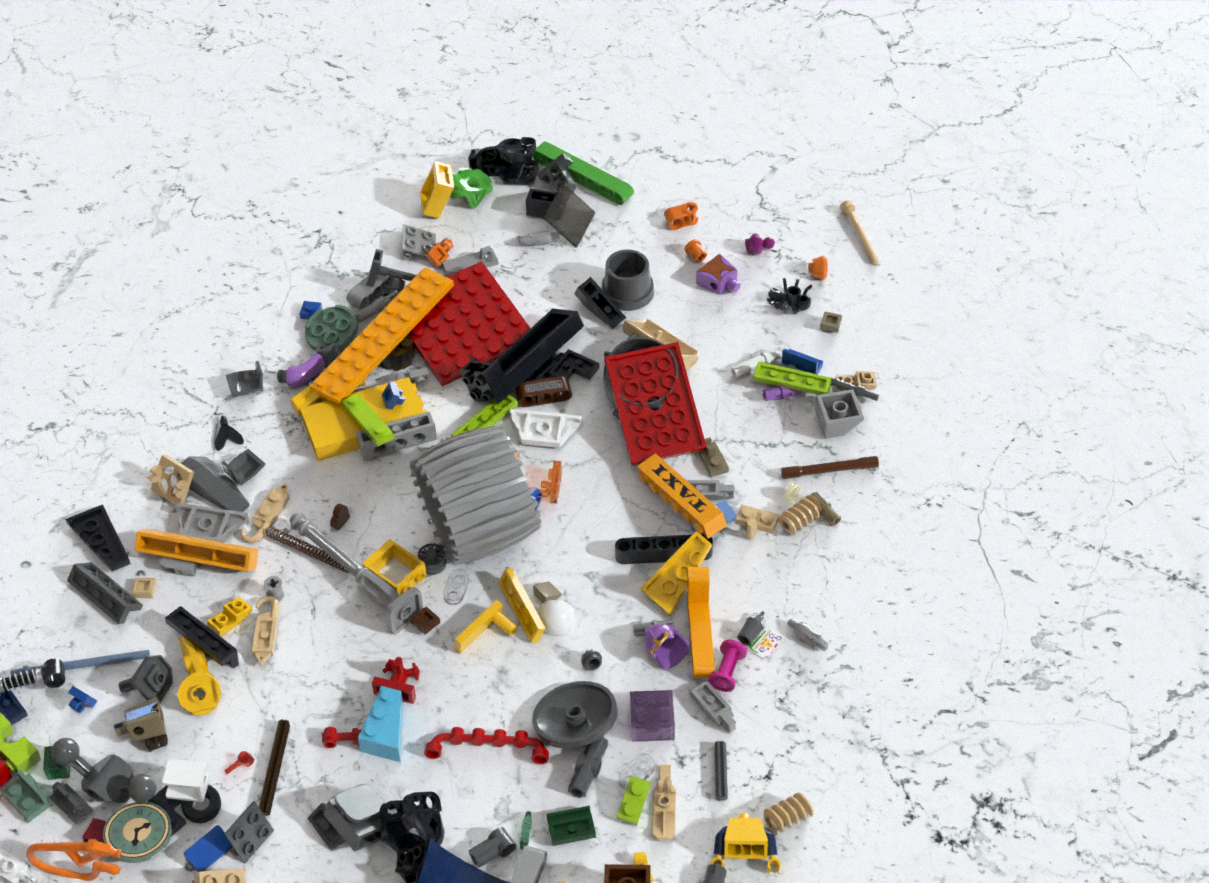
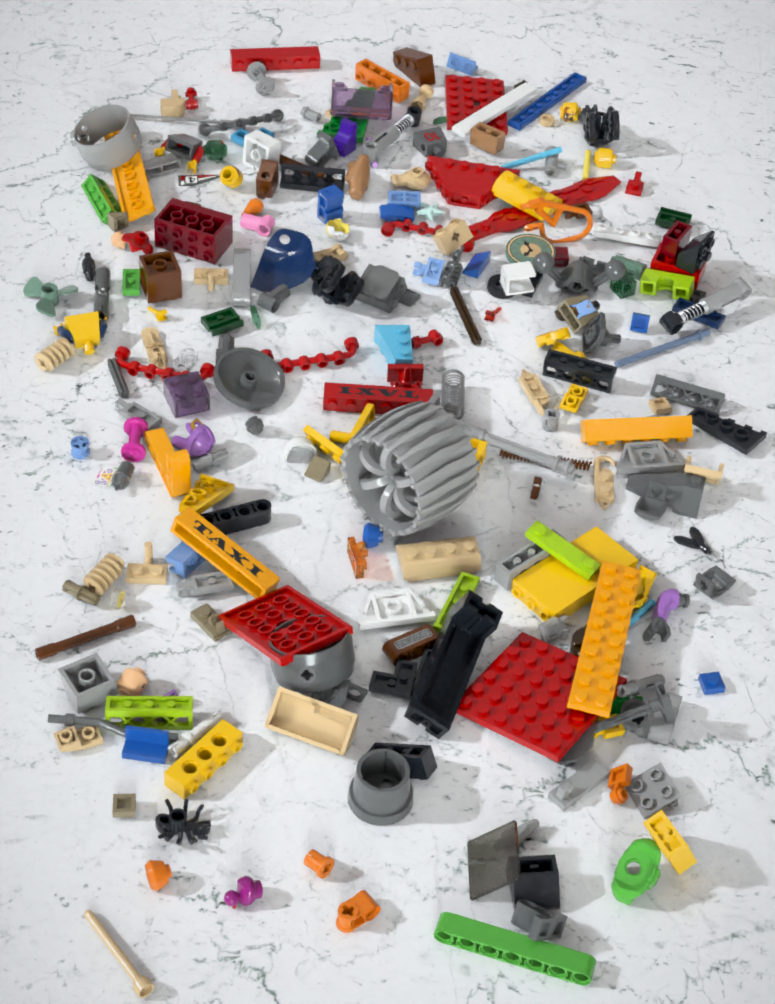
camera: 155 degrees right, 5 degrees down
(274, 847) = (431, 272): none -> light blue plate
(331, 326) = (672, 659): sand green tile -> none
(351, 660) = (453, 392): none -> light grey piece
(392, 395) = (554, 578): blue tile -> none
(444, 660) = (356, 396): none -> red brick
(507, 160) = (615, 924): black animal -> none
(633, 800) = (179, 340): lime plate -> none
(663, 755) = (133, 367): none -> red bar
(718, 276) = (278, 832): medium lavender torso -> none
(757, 339) = (203, 759): none -> yellow brick
(791, 672) = (80, 447): none -> medium blue wheel
(800, 411) = (132, 682): none -> light nougat head
(808, 634) = (72, 484): light grey piece -> none

